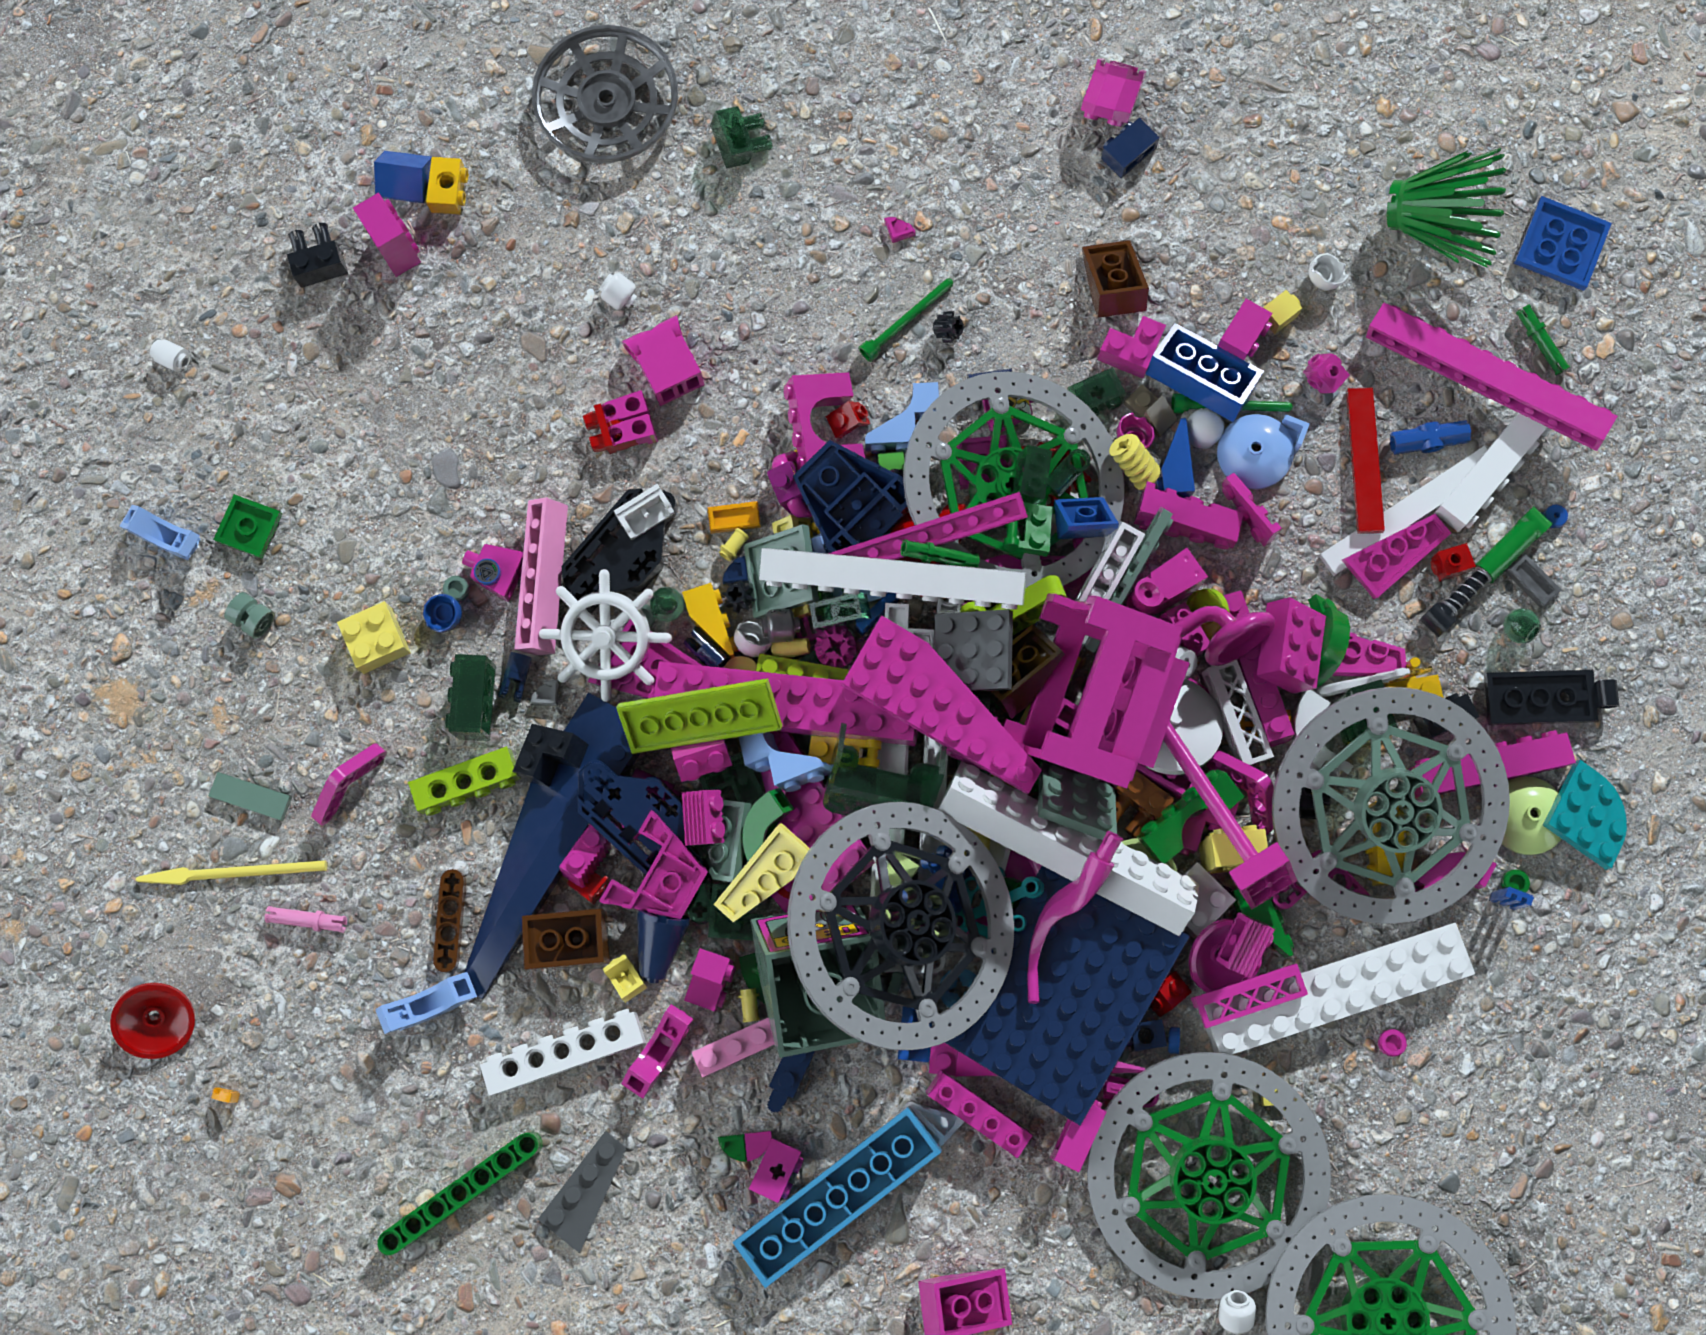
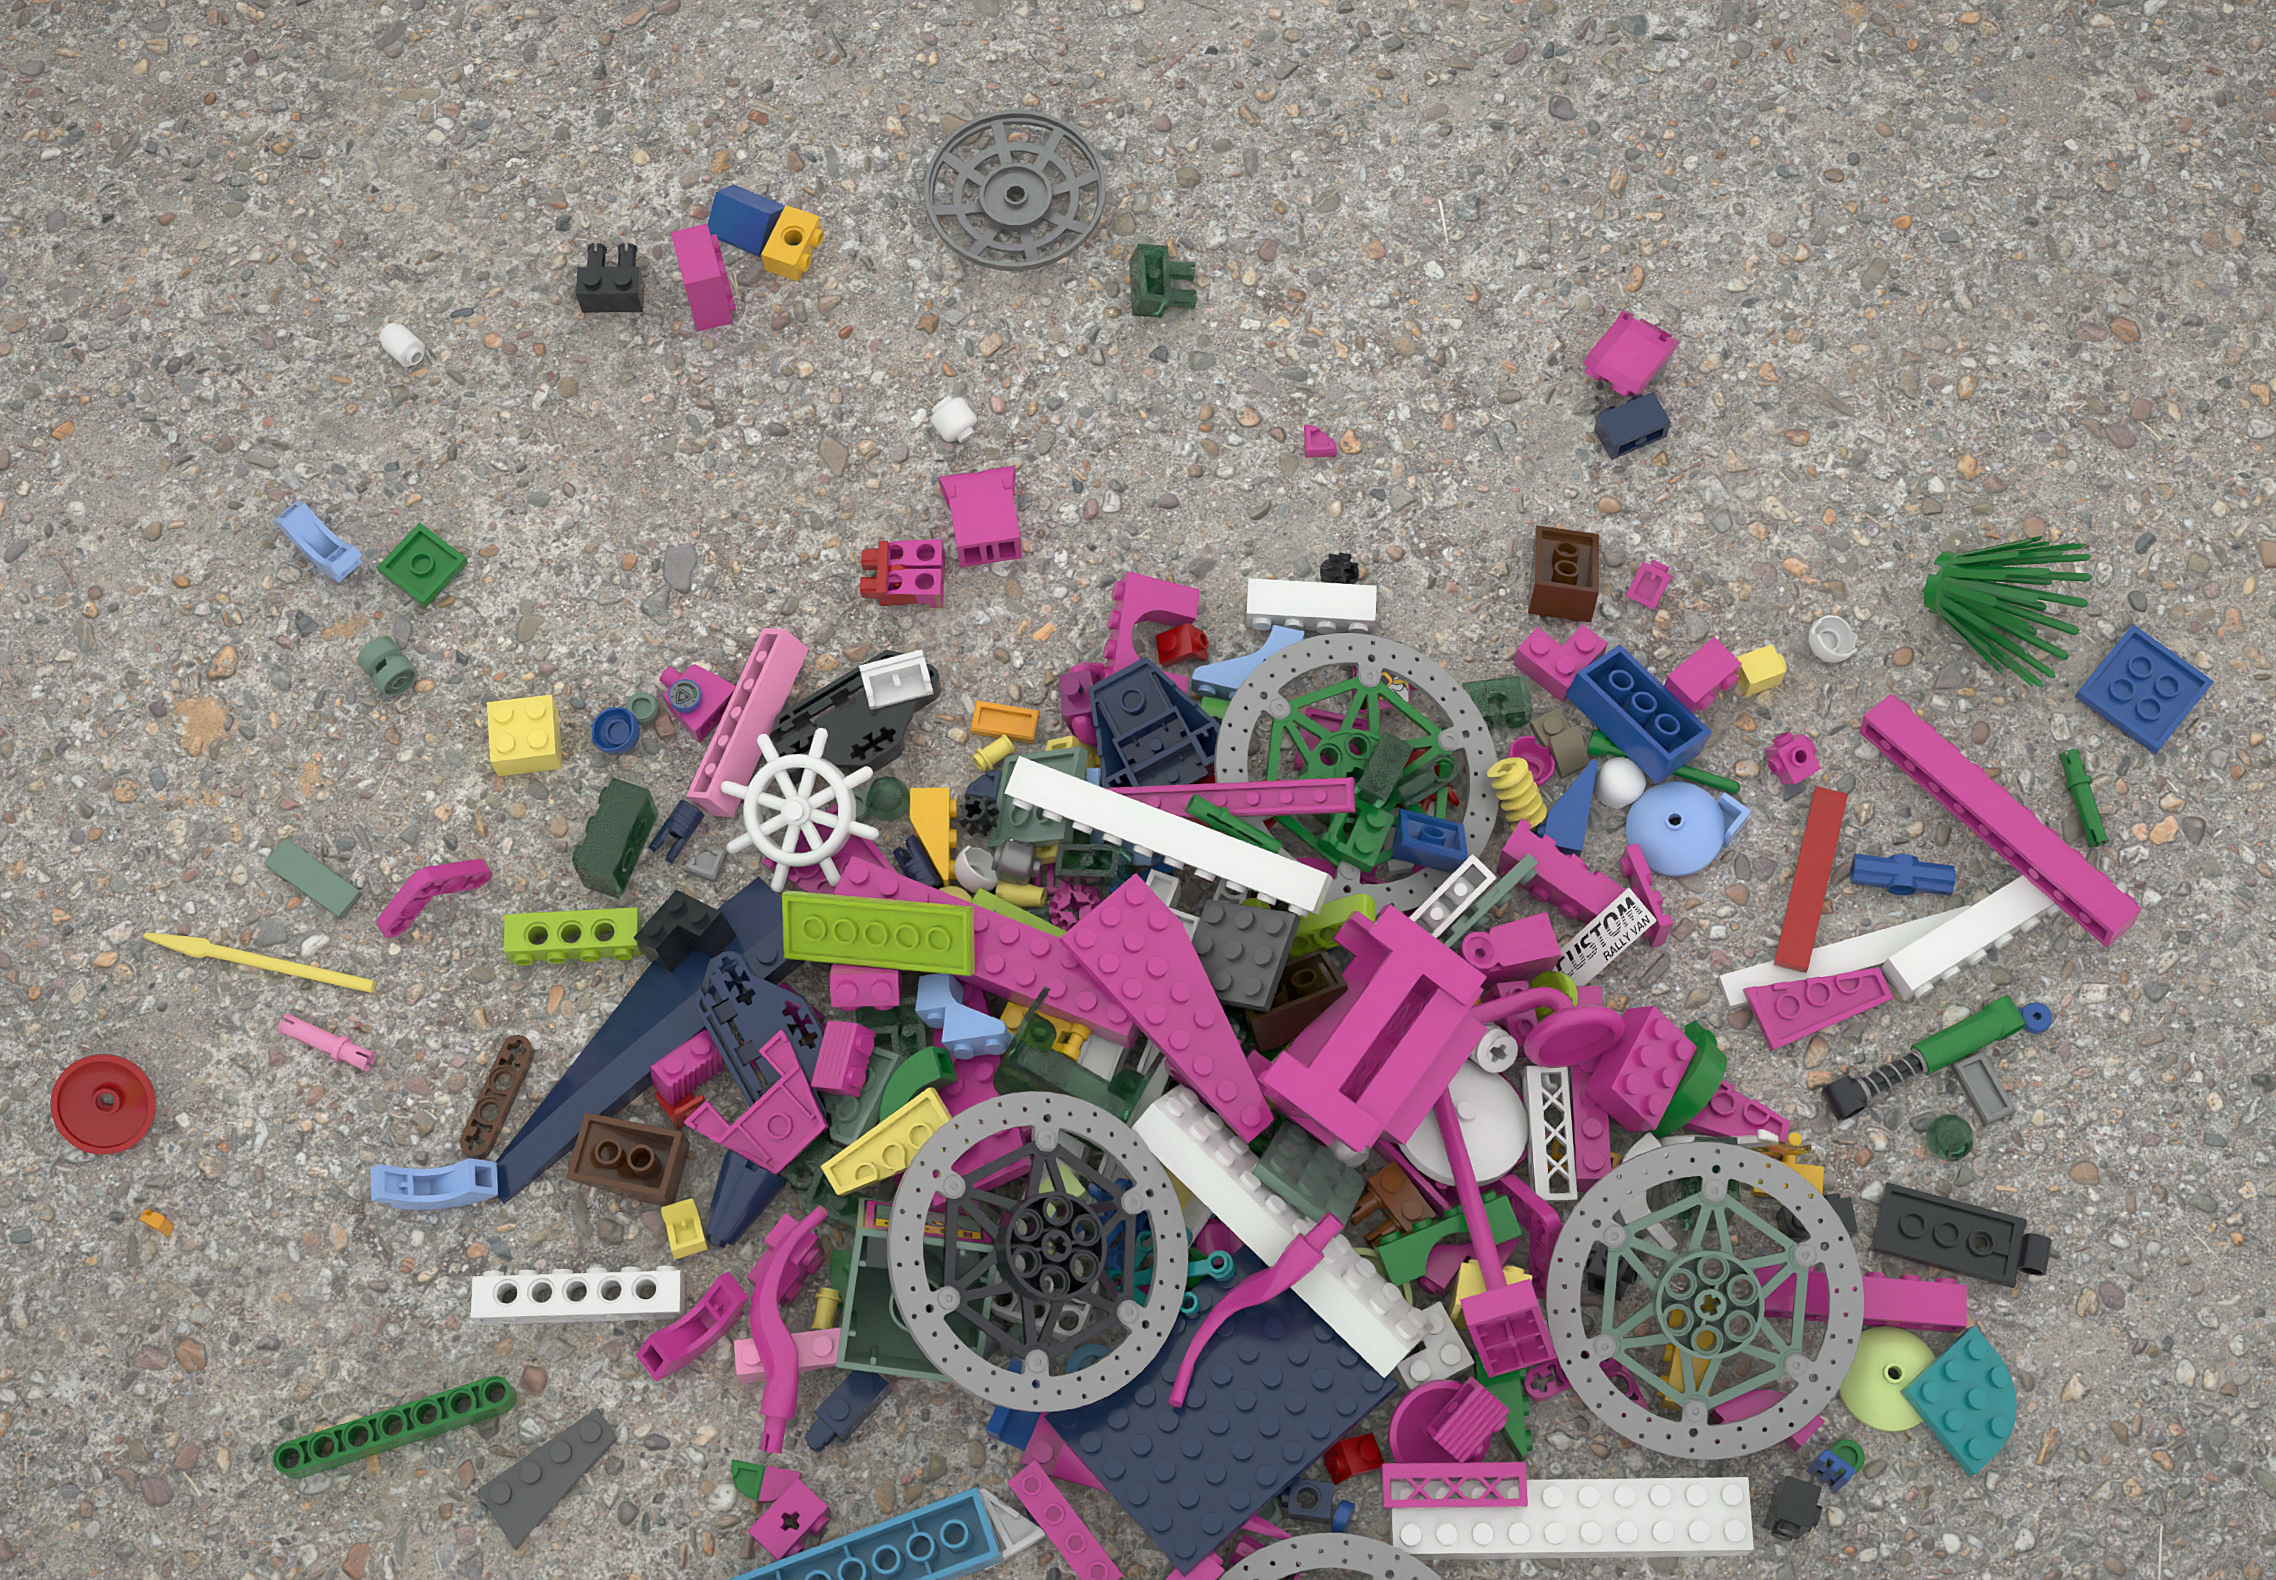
camera: 15 degrees right, 10 degrees down
(722, 1045) = (774, 1340): none -> dark pink animal
(871, 349) = (1237, 572): green piece -> none
(936, 360) = (1311, 606): none -> white brick
(1180, 268) = (1649, 584): none -> dark pink bracket
(1232, 552) = (1604, 938): none -> white sticker
(1452, 562) = (1884, 1034): red brick -> none
(1493, 935) = (1793, 1509): none -> black brick

